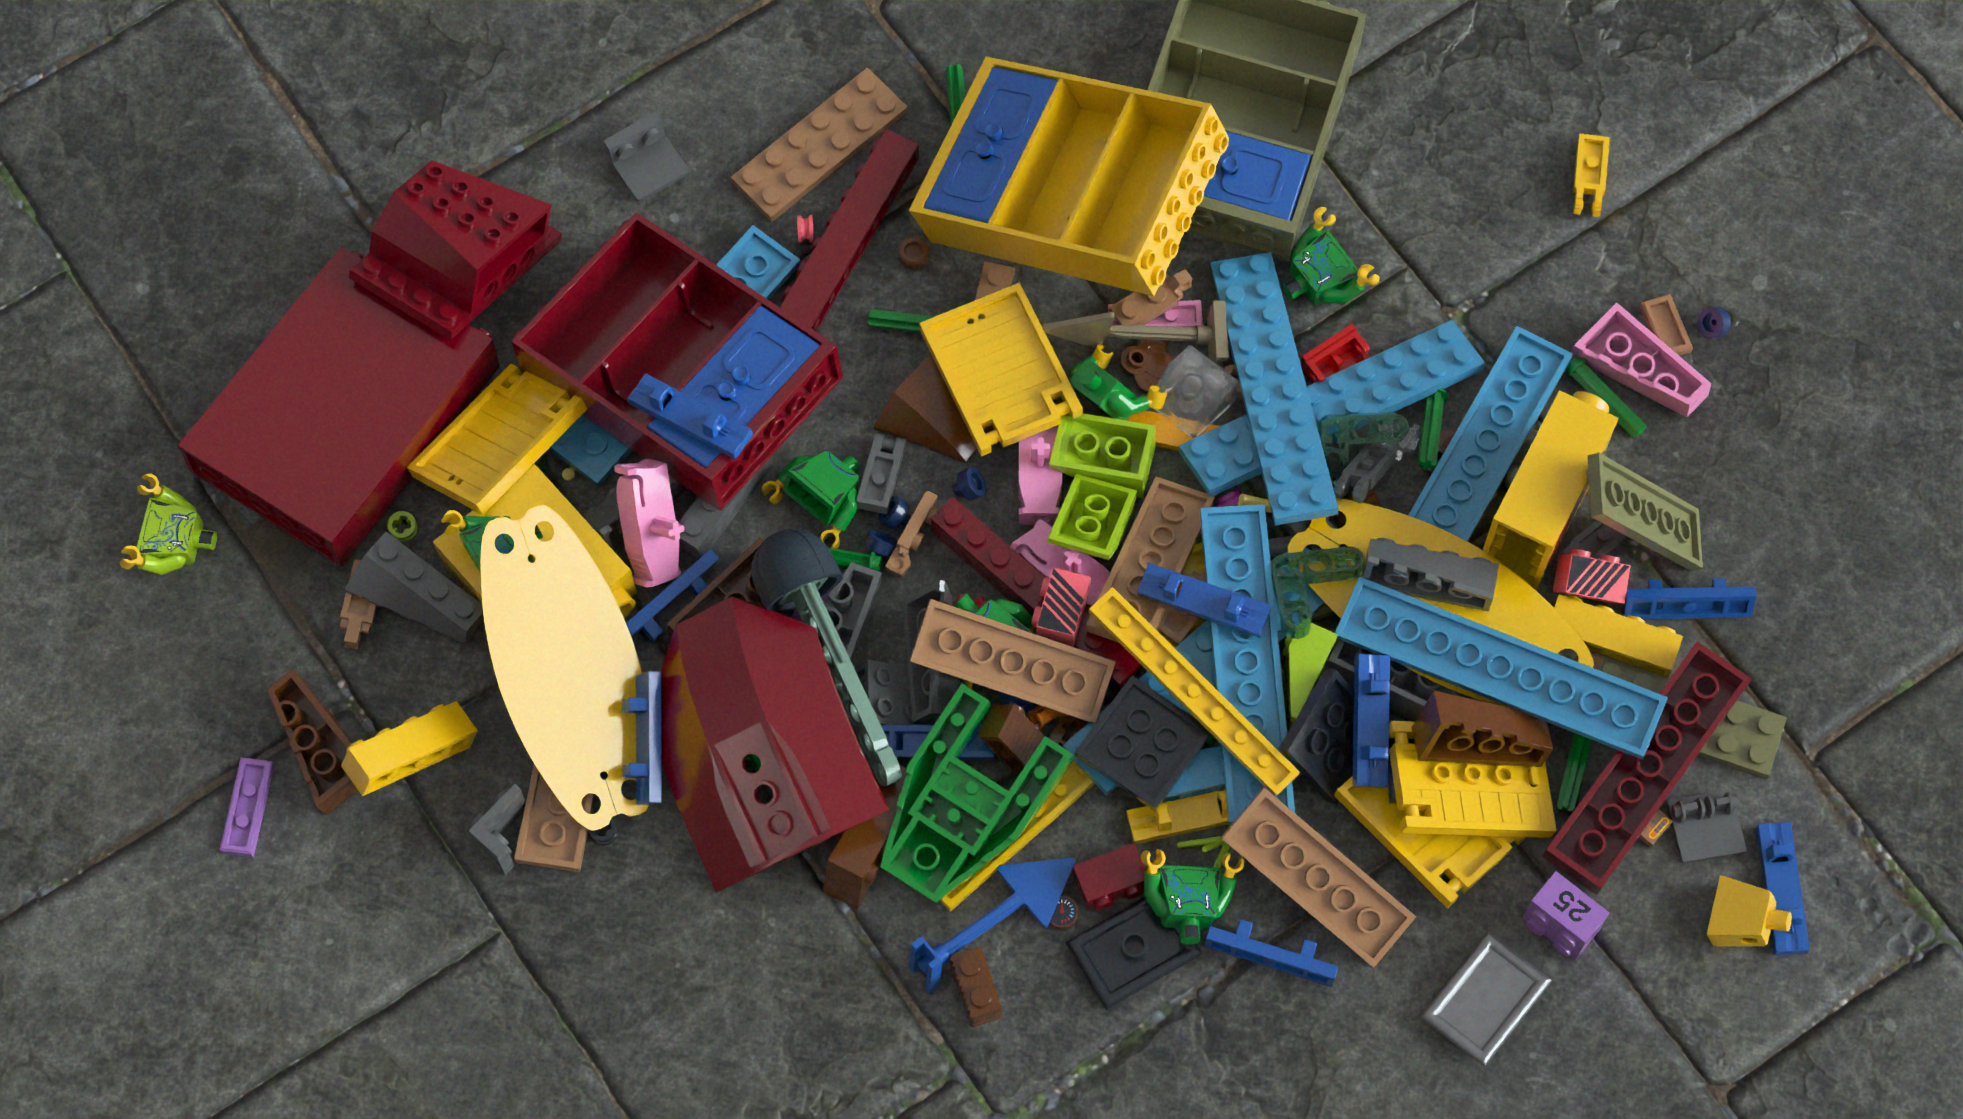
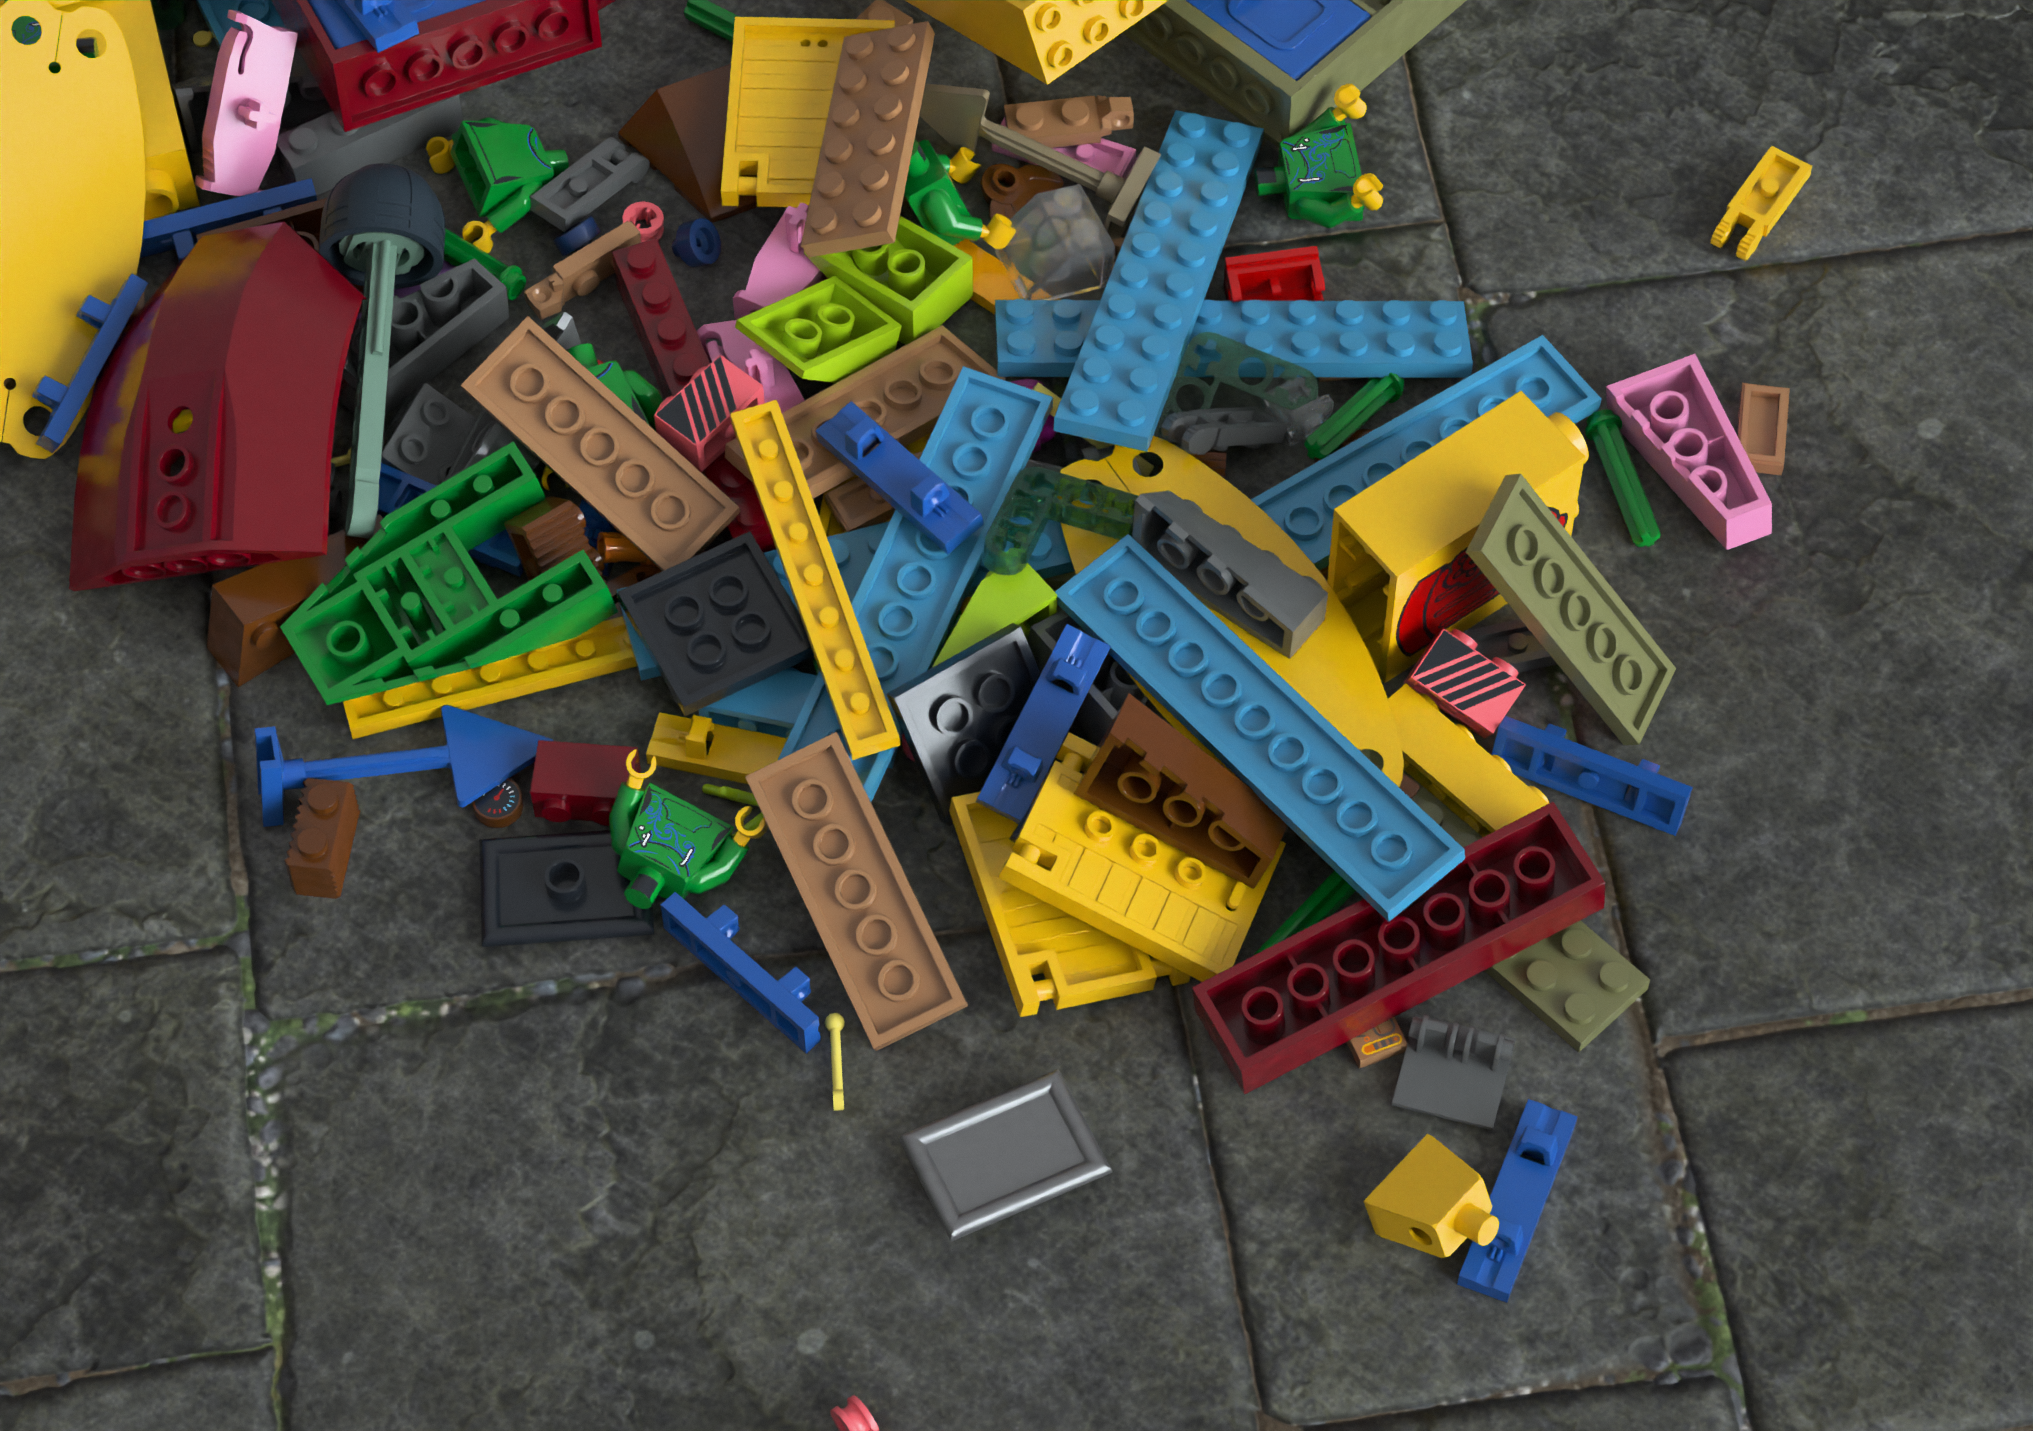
camera: 25 degrees right, 10 degrees down
(880, 543) = (534, 263): dark blue tile -> none
(924, 474) = (651, 214): none -> coral bush
(1057, 377) = (868, 140): none -> medium nougat plate
(1339, 960) = (835, 1023): none -> light yellow hinge
(1565, 916) = (1173, 1089): medium lavender brick -> none
(1713, 322) = (1831, 444): dark blue tile -> none

